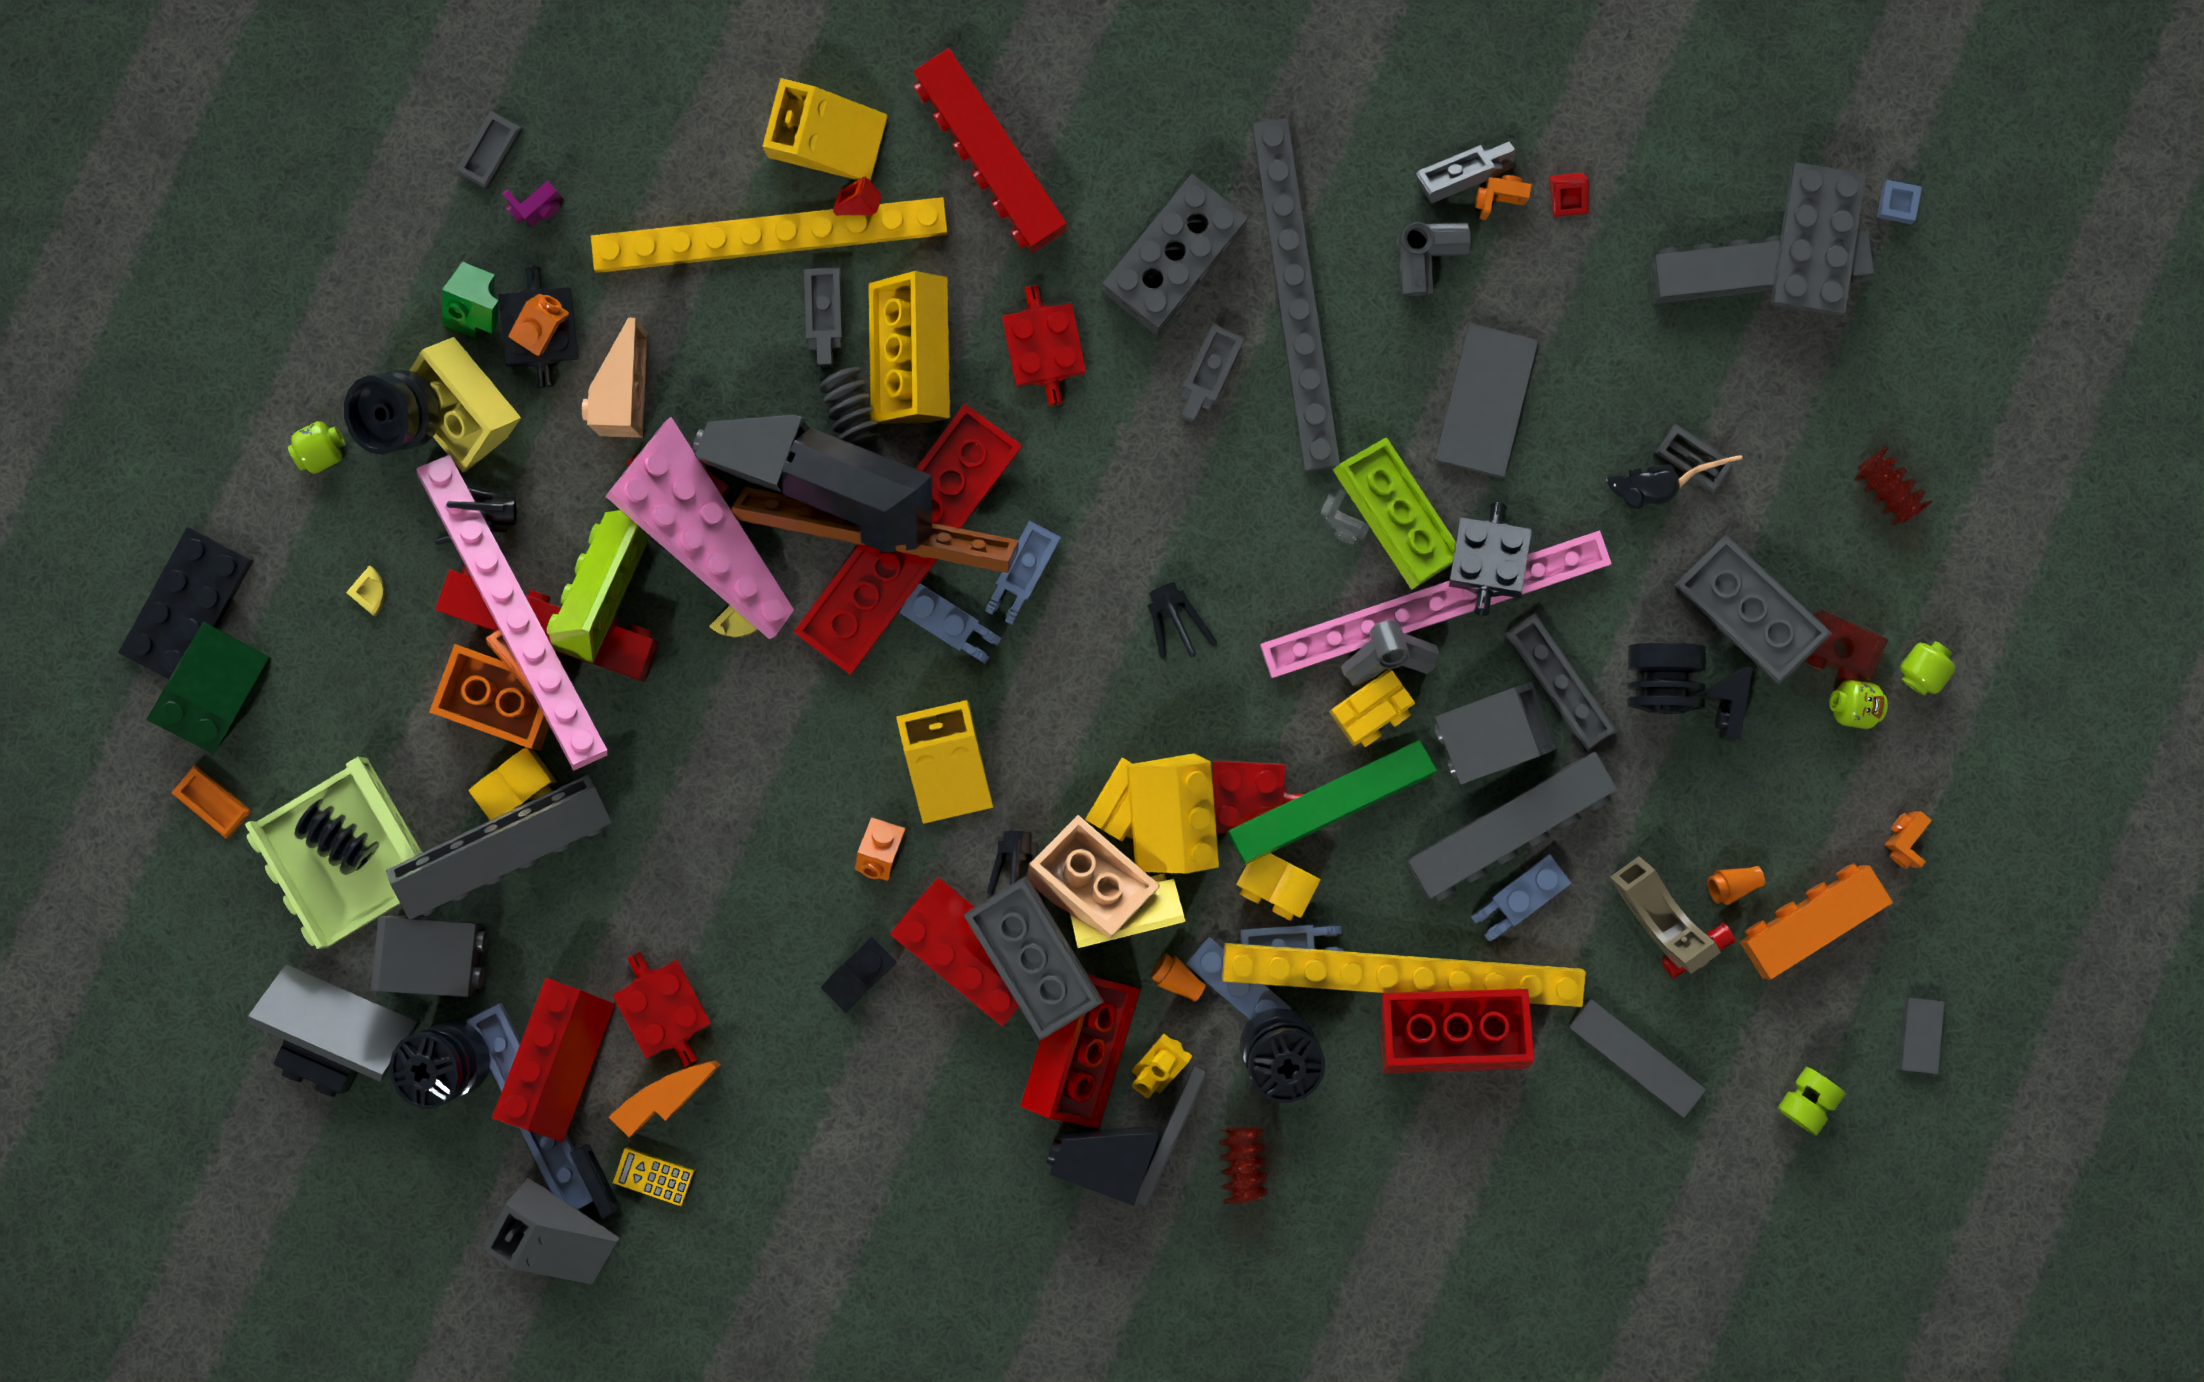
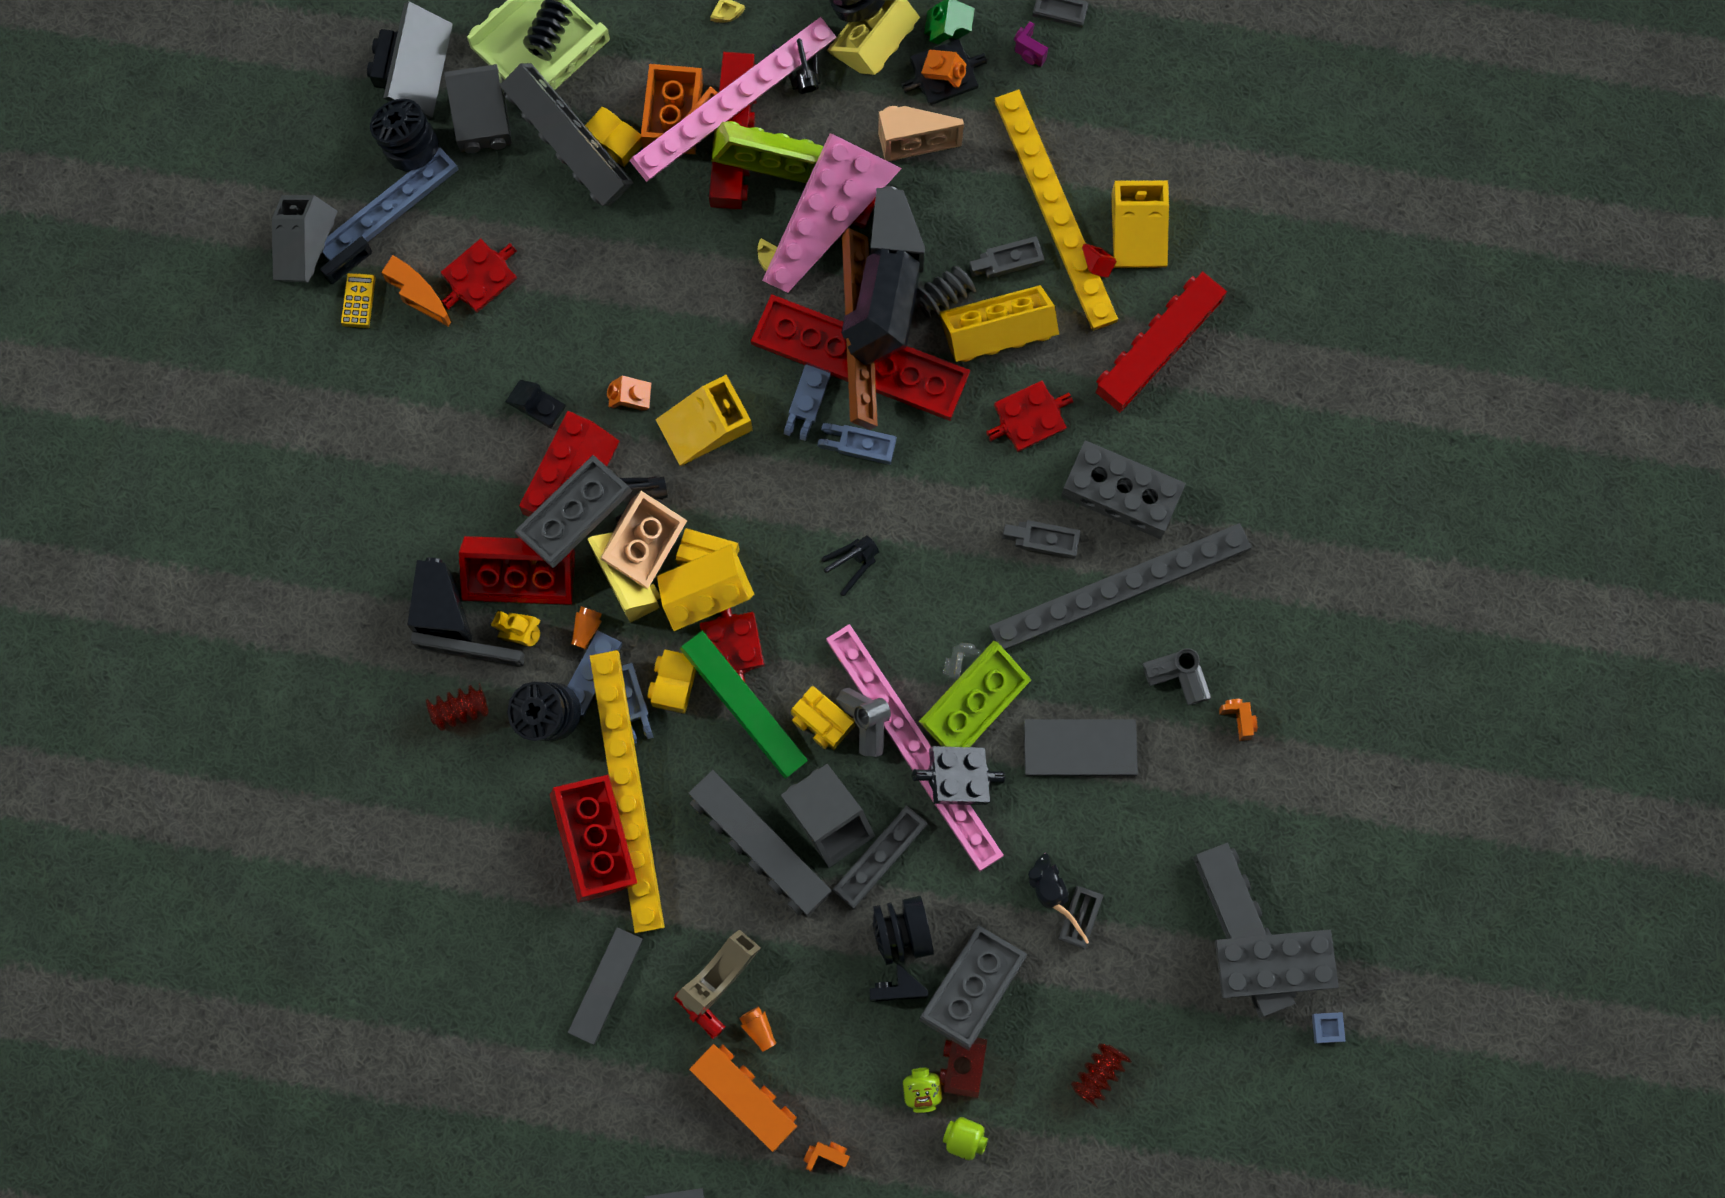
camera: 75 degrees right, 10 degrees down
(553, 1060) = (424, 208): red slope -> none
(1465, 170) = (1251, 688): dark grey hinge -> none
(1524, 895) = (709, 869): sand blue hinge -> none
(1569, 194) = (1257, 771): red slope -> none
(1803, 1111) = (602, 1127): lime wheel -> none

